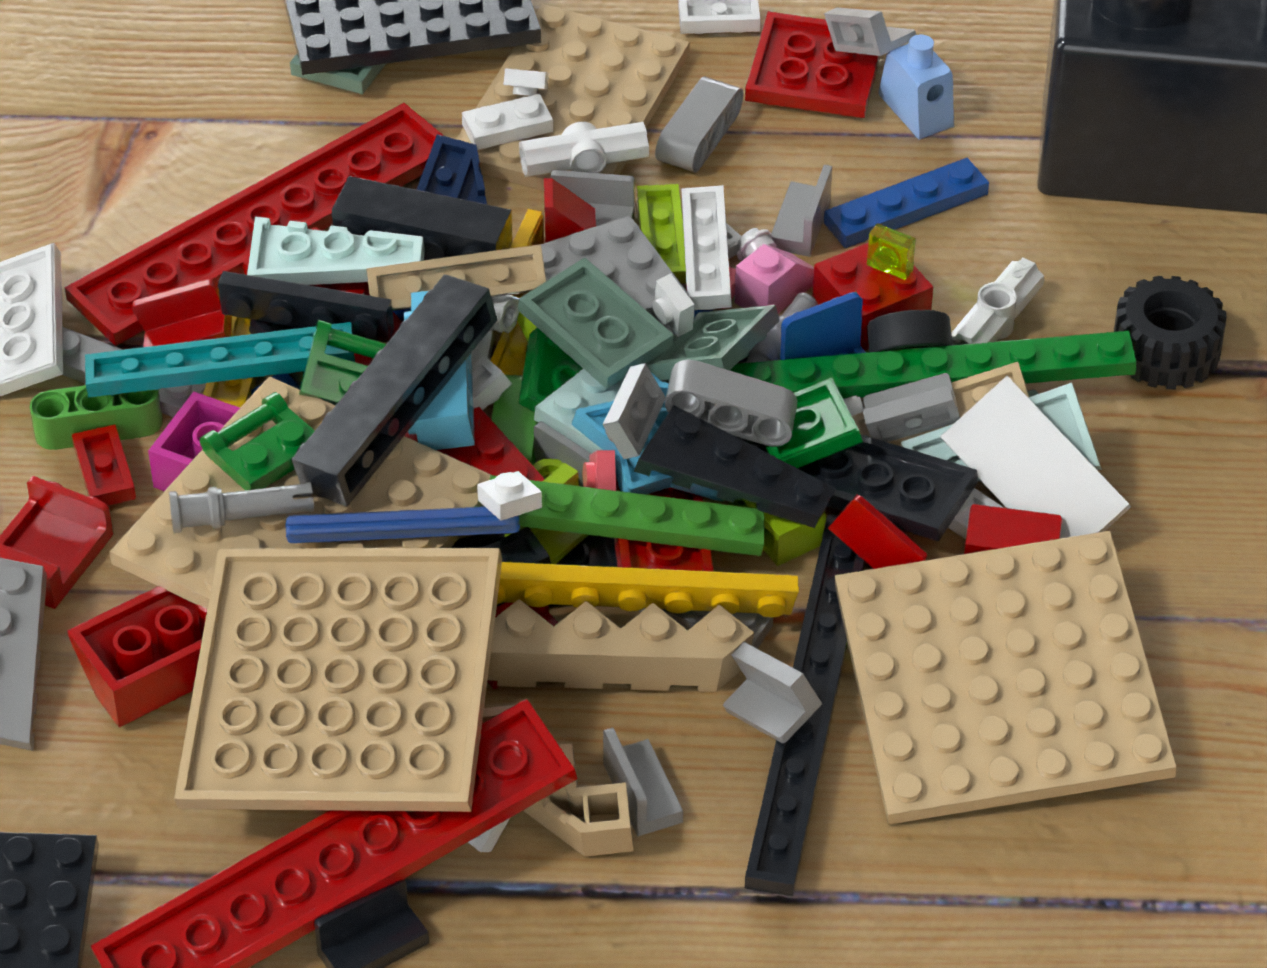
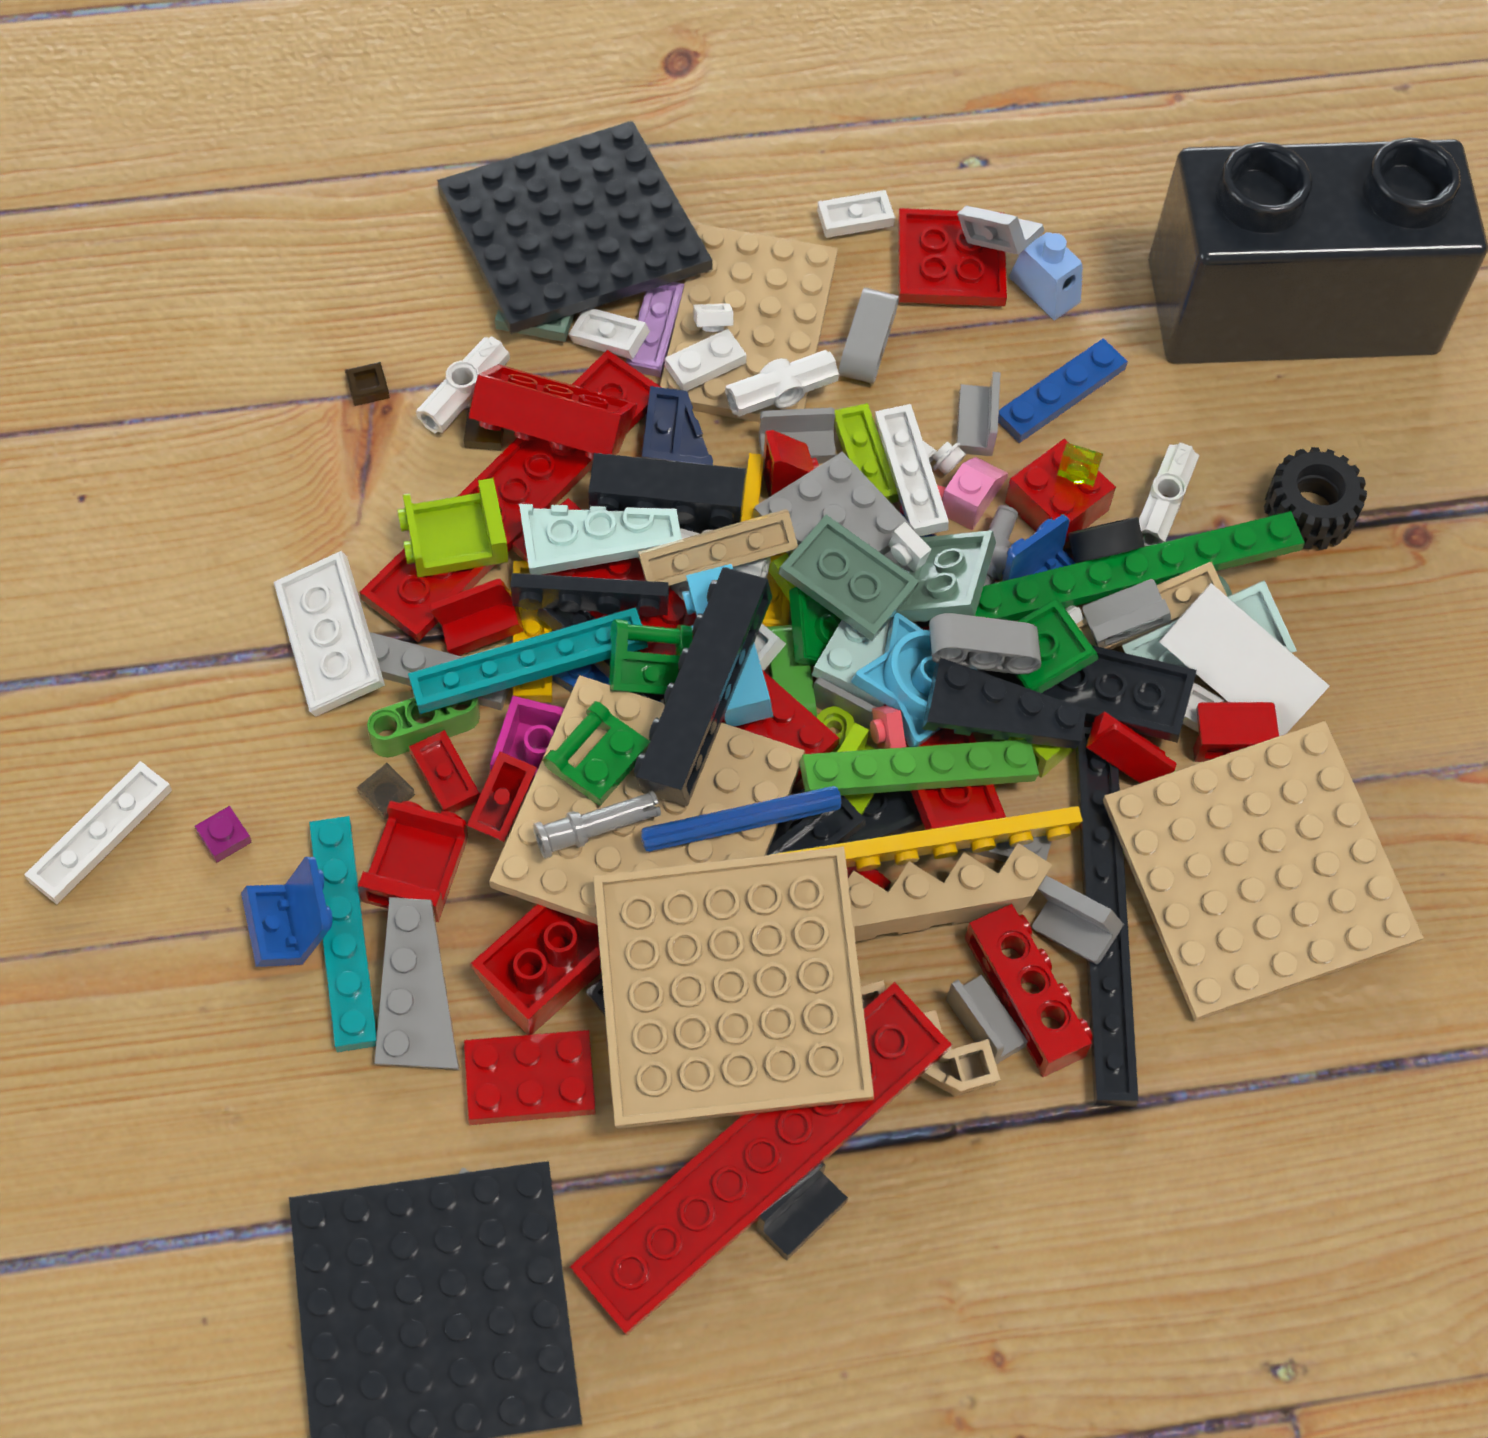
camera: 15 degrees left, 15 degrees up
(34, 463) = (383, 787): none -> clear smoke plate
(106, 766) = (529, 1077): none -> red plate
(136, 108) = (367, 384): none -> dark brown tile
(148, 478) = (501, 796): none -> red slope
(180, 242) = (454, 532): none -> lime panel
(237, 116) = (451, 396): none -> white piece
(249, 162) = (481, 438): none -> dark brown tile
(317, 142) = (551, 411): none -> red slope
(412, 86) = (609, 332): none -> white plate
(464, 91) = (660, 314): none -> lavender tile
(509, 495) = (830, 780): white plate -> none
(634, 411) = (912, 674): light grey plate -> none
(698, 760) = (1048, 1047): none -> red brick

